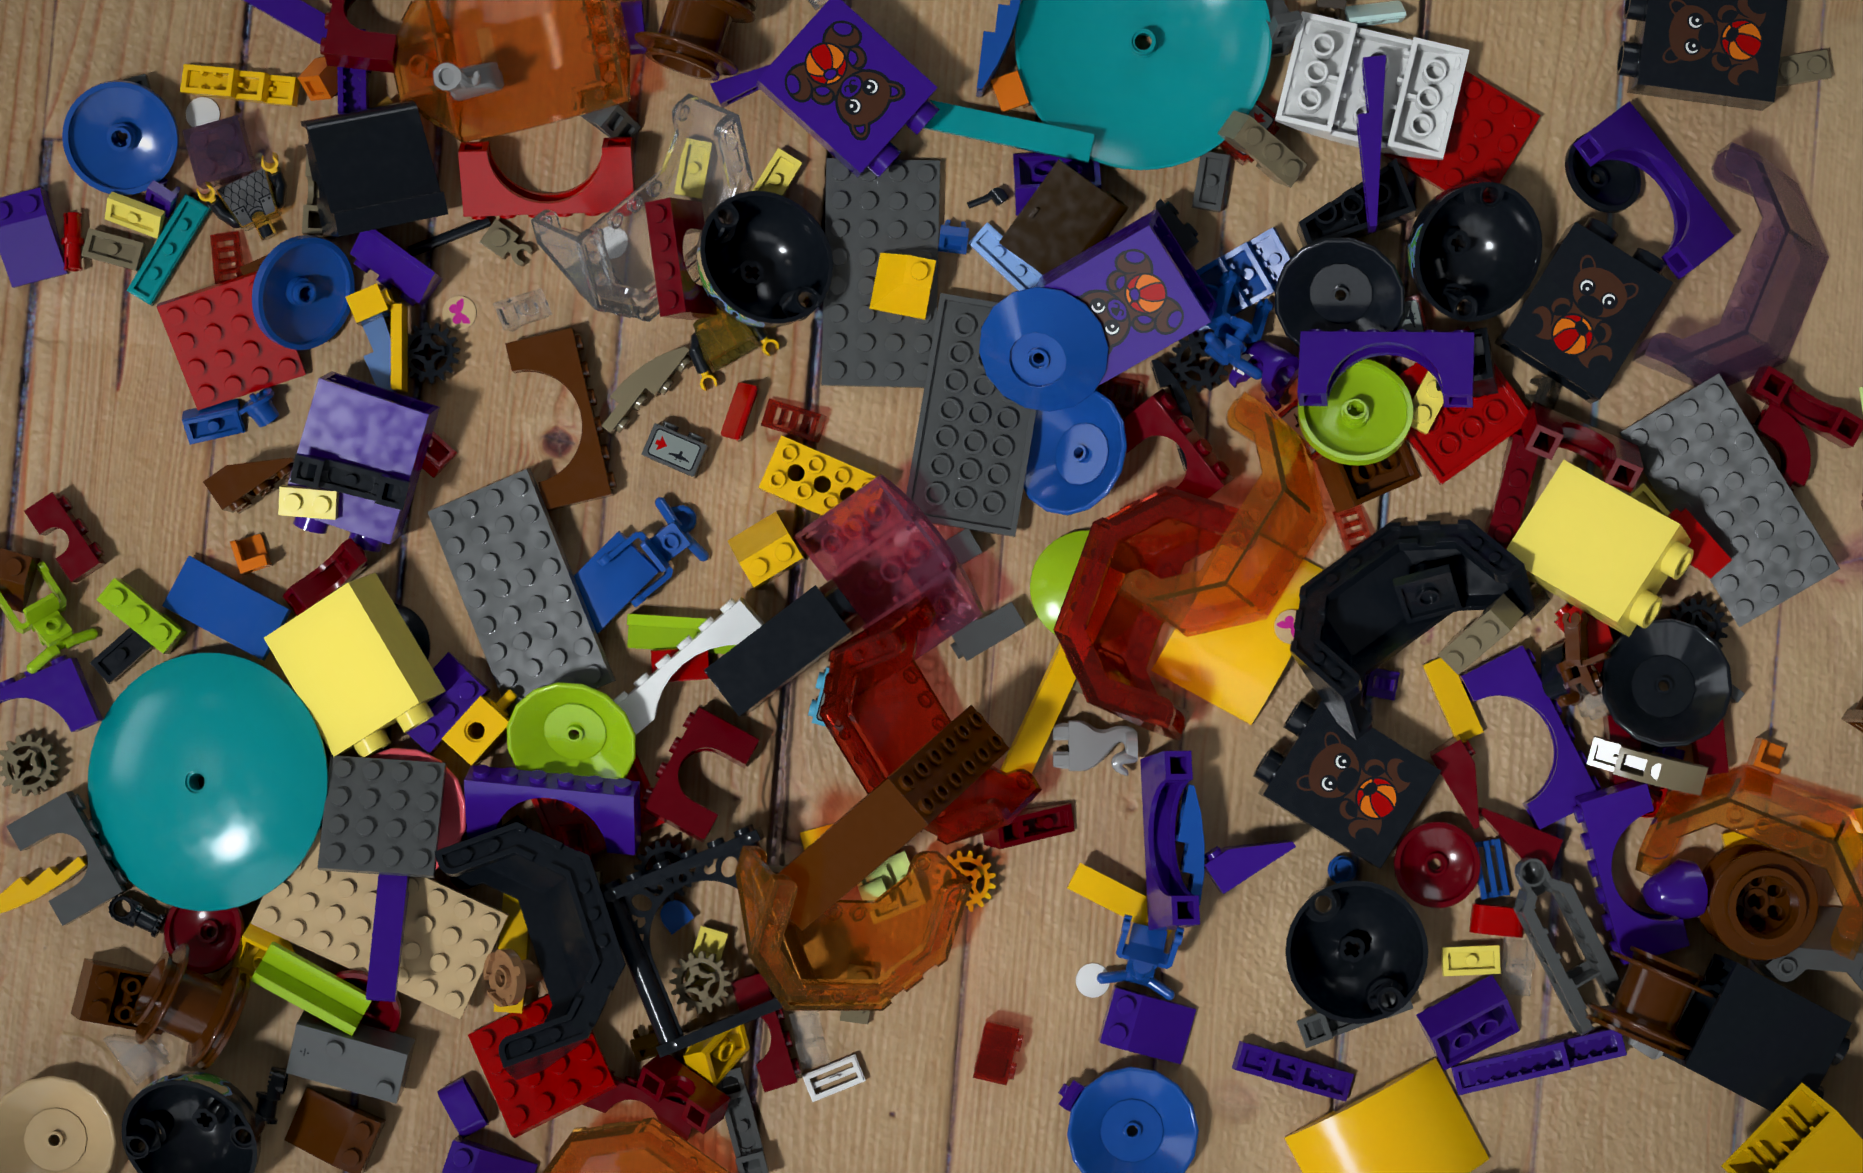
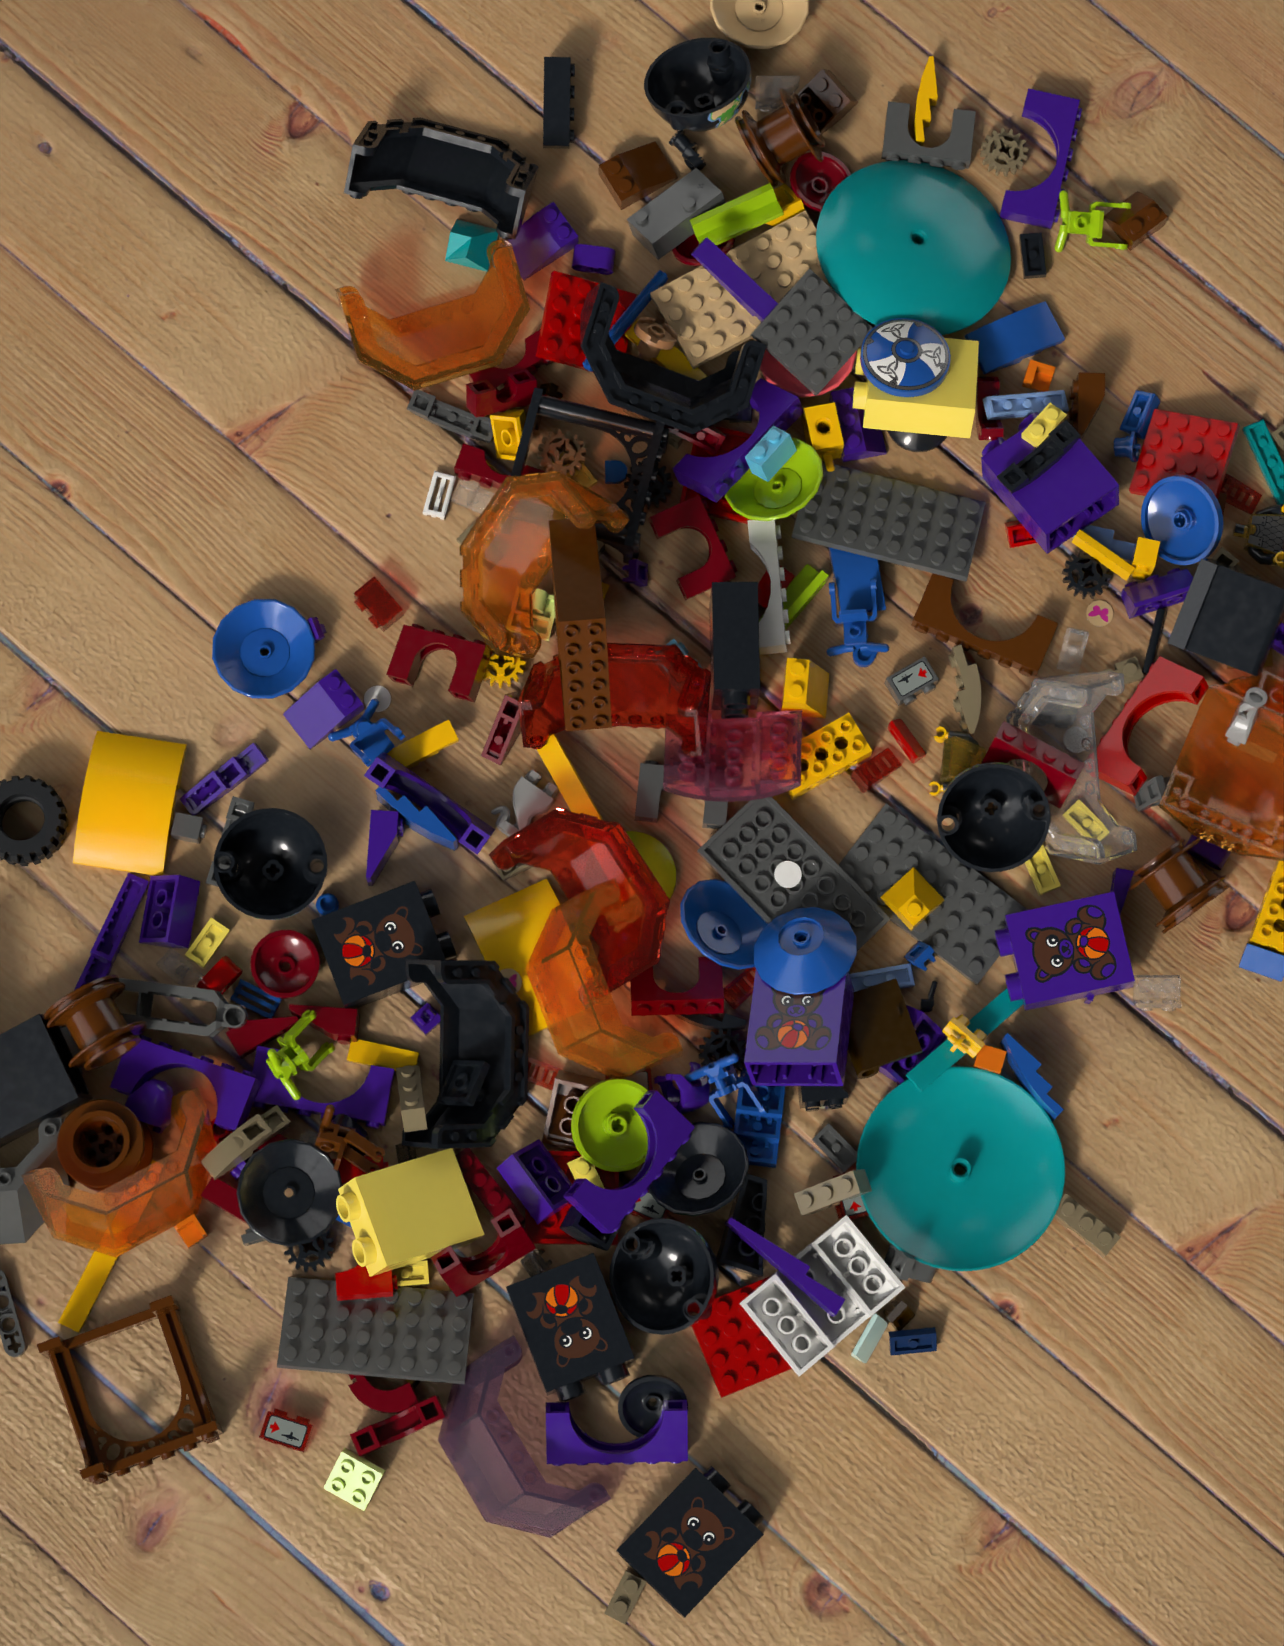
camera: 120 degrees right, 10 degrees down
(82, 555) = (1114, 276): dark red arch -> none
(138, 916) = (860, 151): black connector -> none
(141, 616) = (1060, 279): lime arch -> none
(293, 543) = (1023, 404): none -> light blue tile
(342, 697) = (905, 357): none -> dish
(482, 1022) = (633, 310): none -> blue axle
(547, 762) = (770, 453): none -> medium azure brick
(767, 812) = (637, 573): none -> dark purple tile
(972, 427) = (787, 874): none -> white sticker
(1010, 981) = (417, 643): none -> dark red arch
(1013, 130) = (962, 1037): none -> yellow hips
(1369, 1068) = (188, 828): none -> dark grey brick
(1467, 449) = (536, 1180): none -> dark purple slope
(1530, 785) = (285, 1061): none -> lime piece

